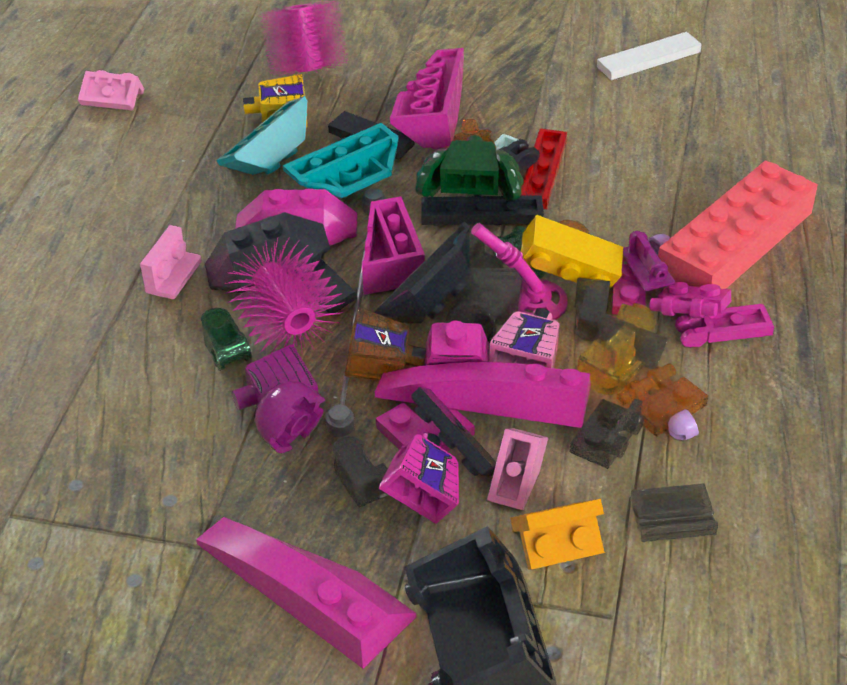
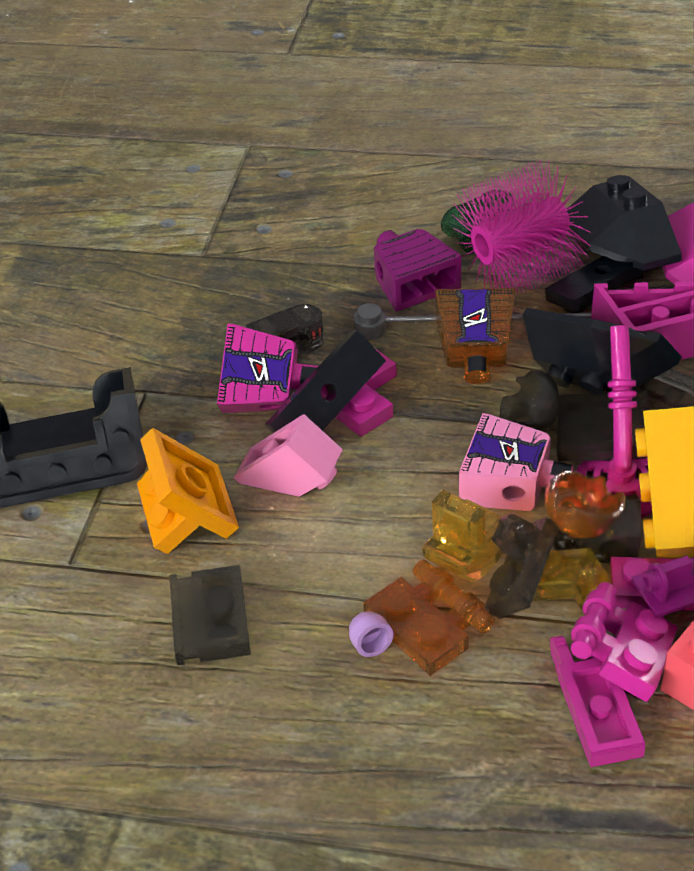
camera: 90 degrees right, 0 degrees up
(168, 265) = (590, 160): bright pink bracket -> none
(286, 413) = (346, 263): magenta cylinder -> none
(319, 593) = (127, 319): dark pink wedge -> none
(456, 343) = (466, 367): dark pink torso -> none
(497, 389) = (415, 443): dark pink wedge -> none
(601, 292) = (582, 504): none -> clear orange hair
(607, 432) = (357, 552): clear smoke bracket -> none

